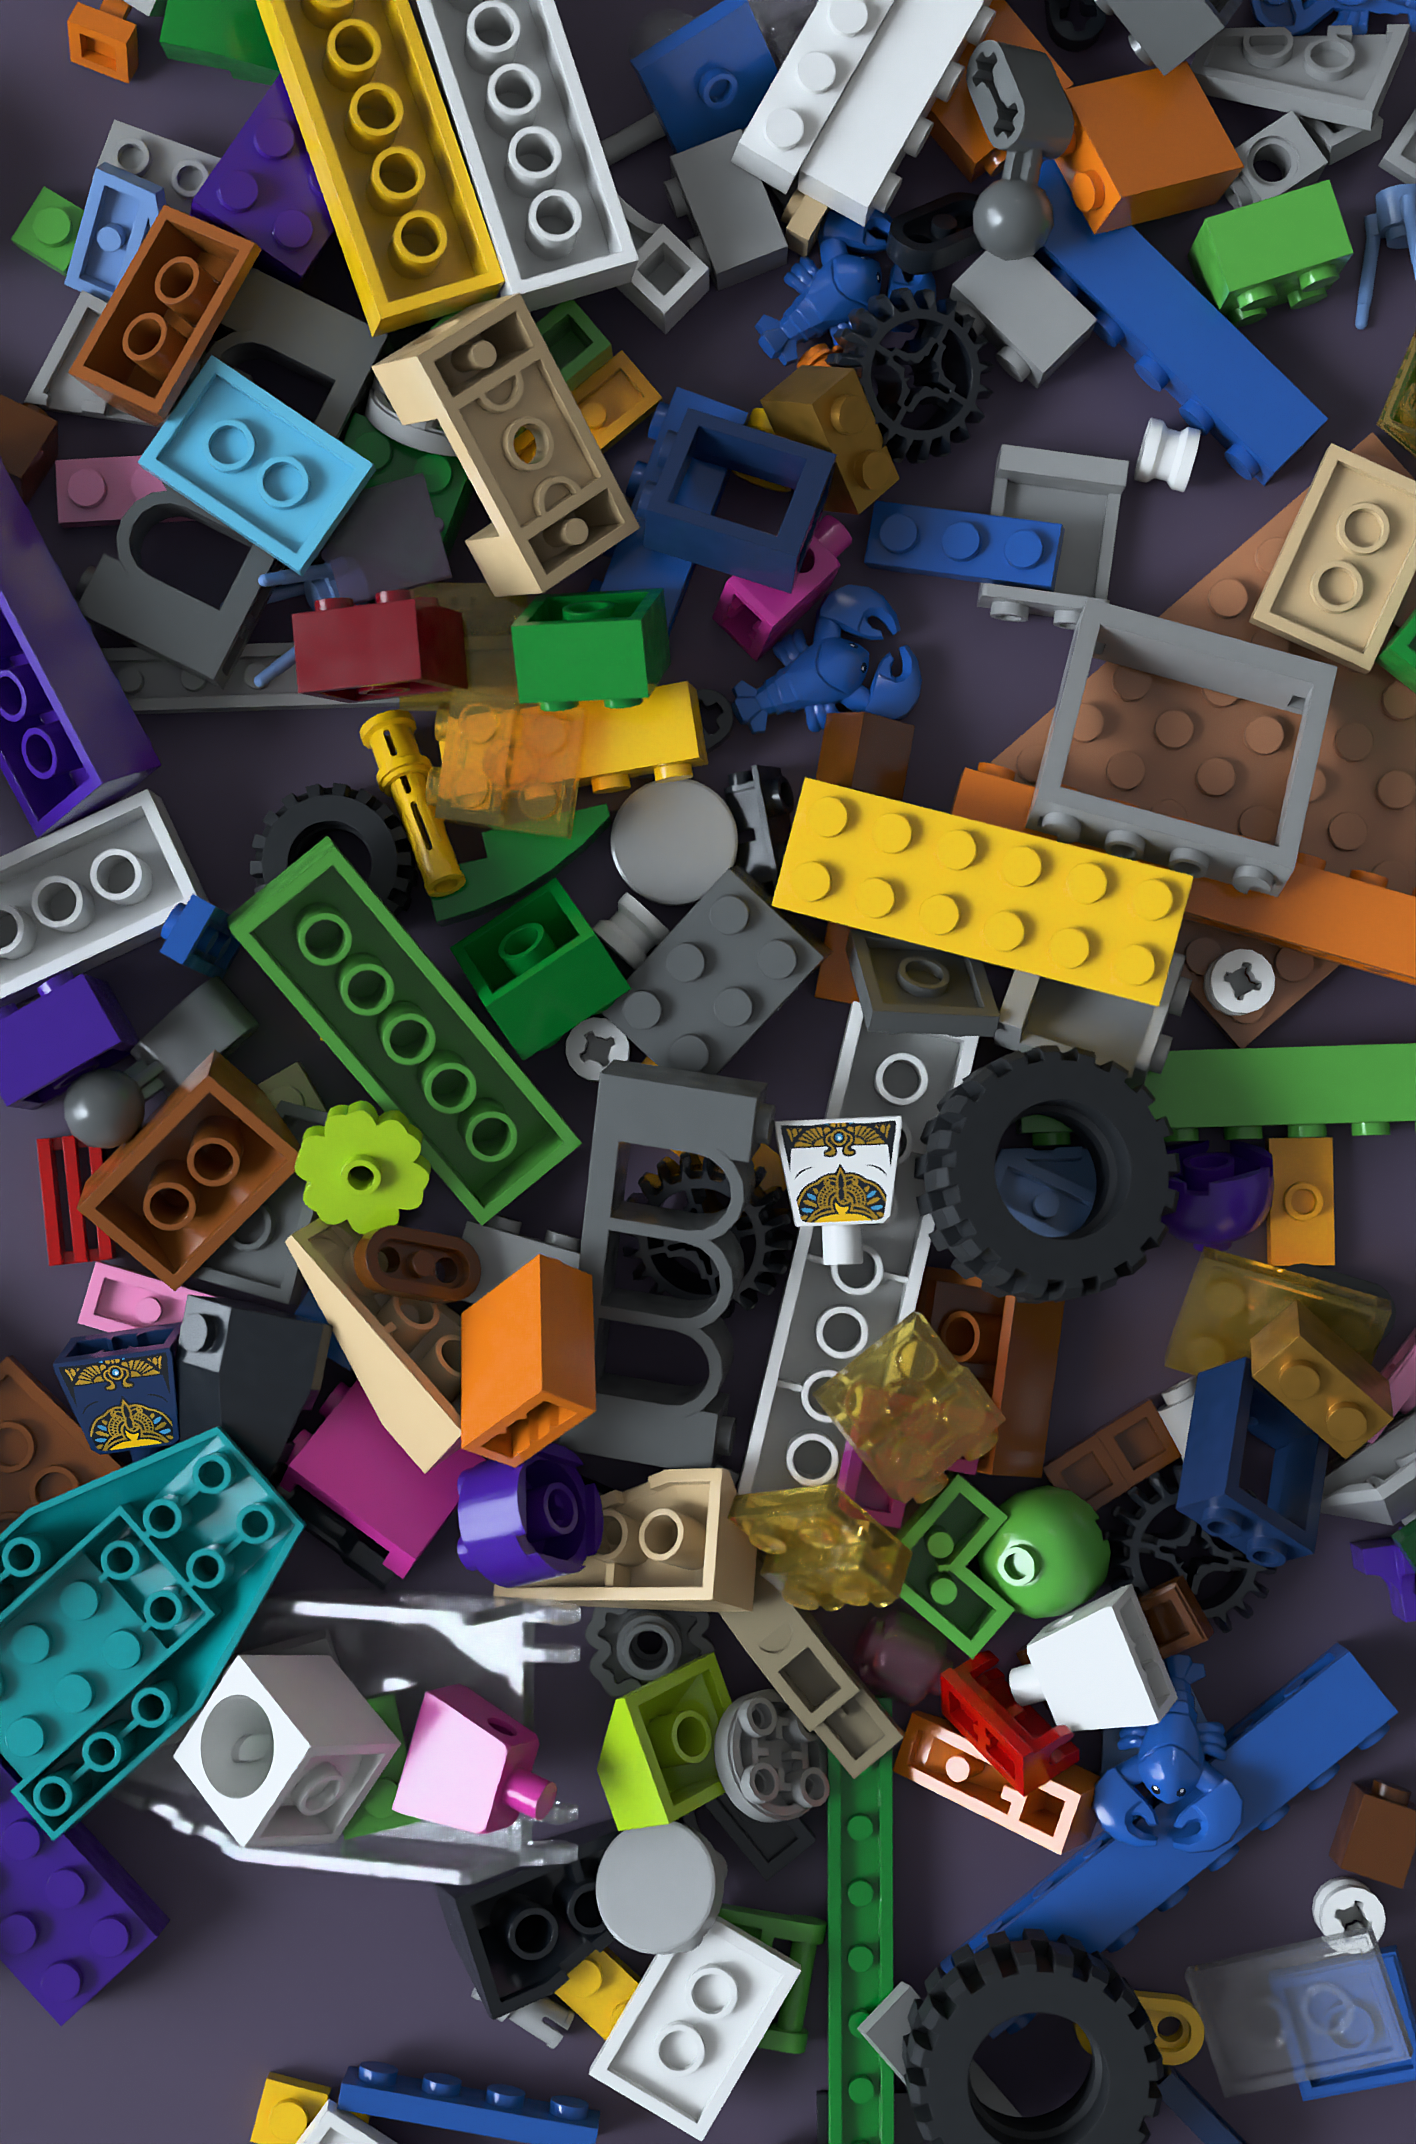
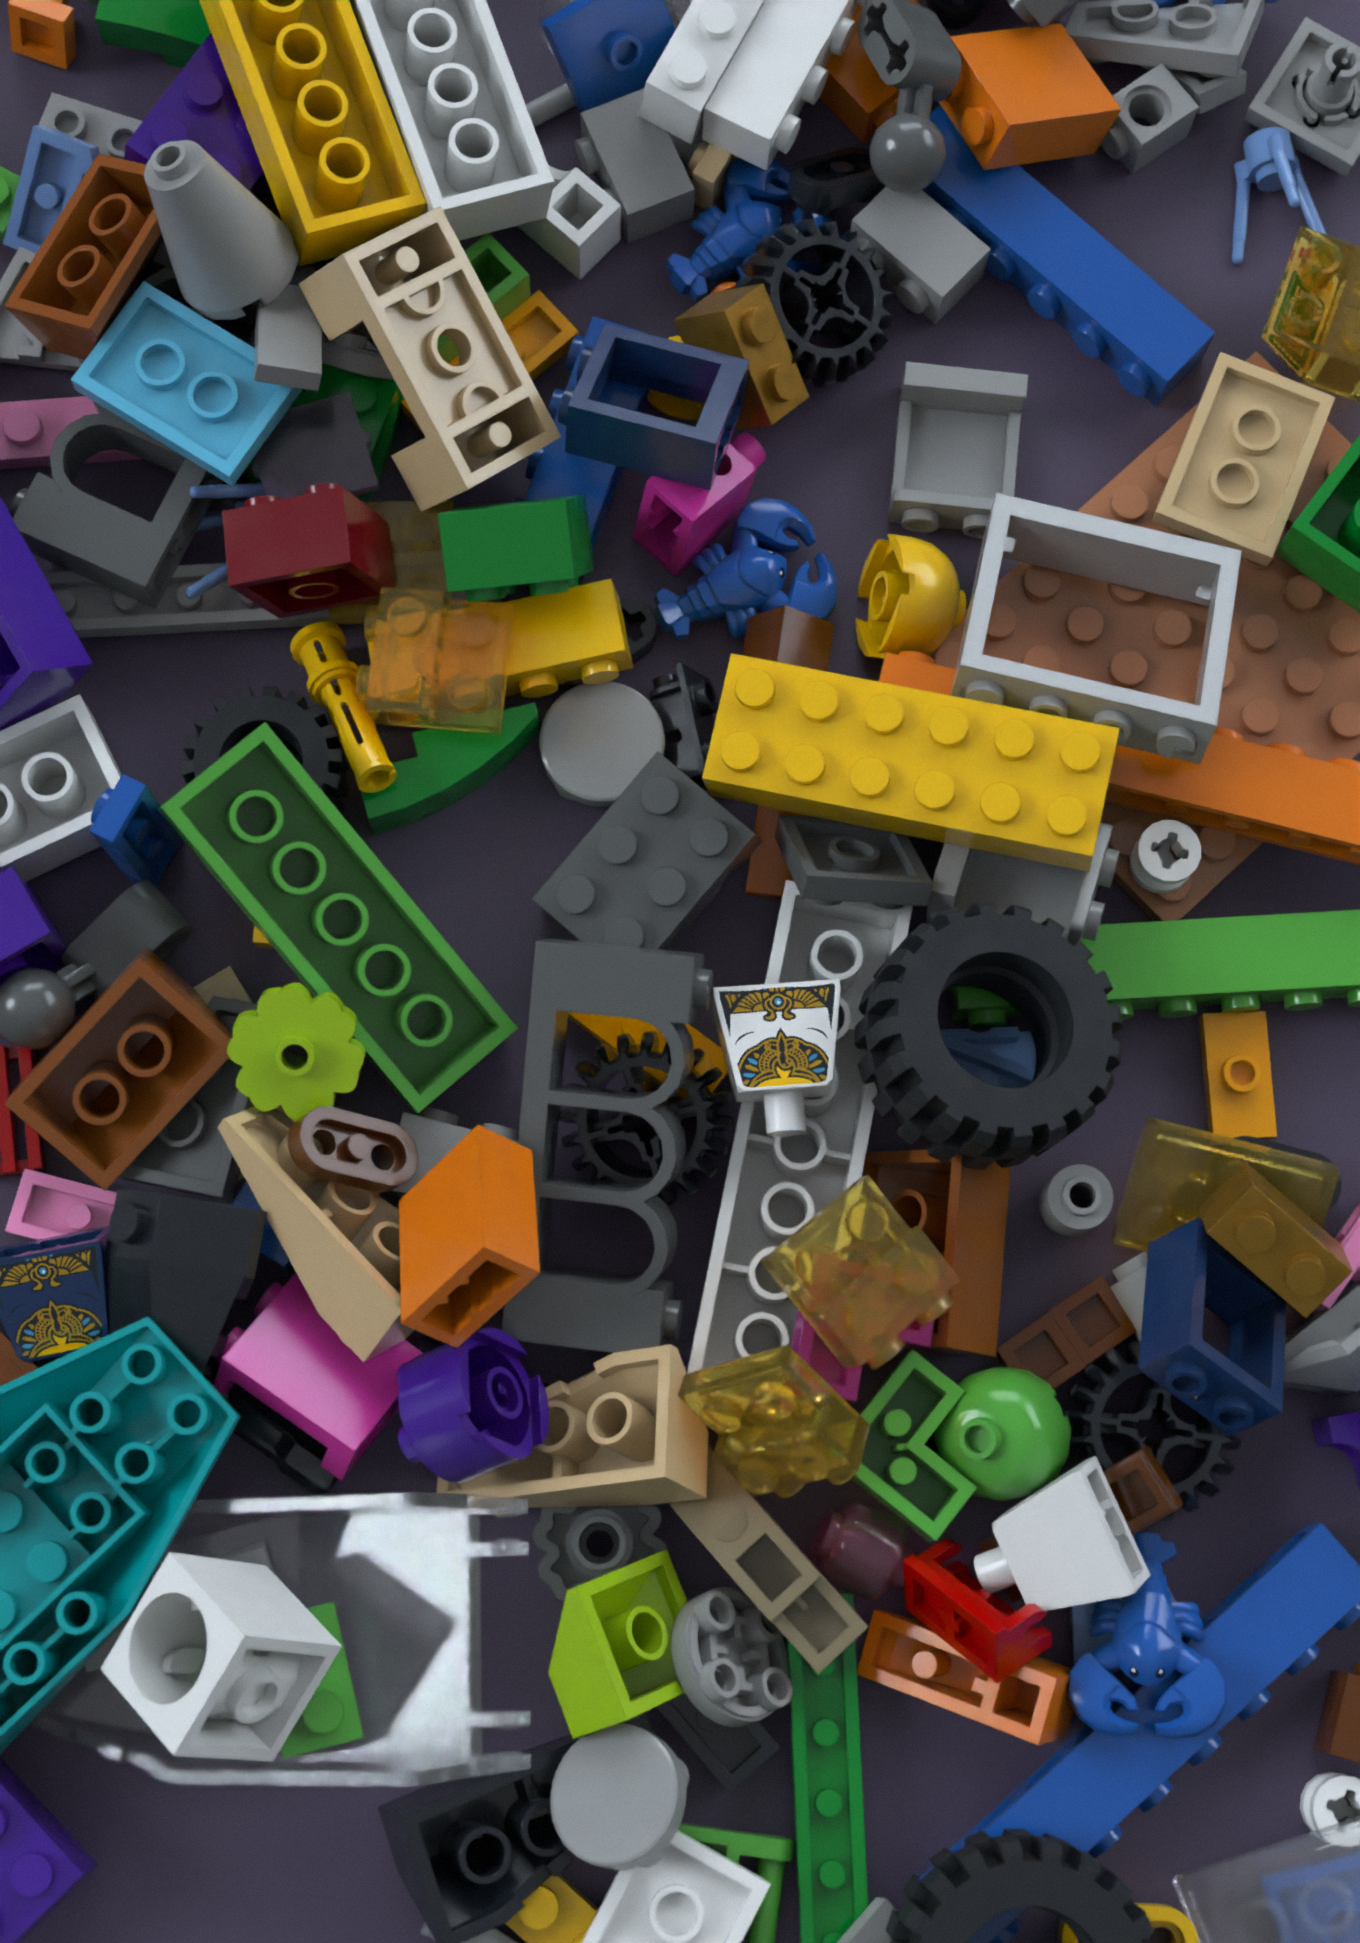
camera: 15 degrees left, 10 degrees down
(290, 316) = (217, 233): none -> light grey cone
(358, 421) = (288, 341): none -> light grey tile
(471, 1765) = (416, 1668): torso -> none
(540, 969) = (473, 860): green brick -> none
(599, 1051) = (515, 932): white wheel -> none
(631, 931) = (559, 827): white wheel -> none
(964, 546) = (872, 459): blue plate -> none
(994, 703) = (910, 596): none -> yellow cylinder
(1108, 1324) = (1060, 1212): none -> light grey brick
(1167, 454) = (1063, 374): white wheel -> none
(1220, 1193) = (1161, 1068): dark purple cylinder -> none
(1271, 253) = (1152, 184): bright green brick -> none

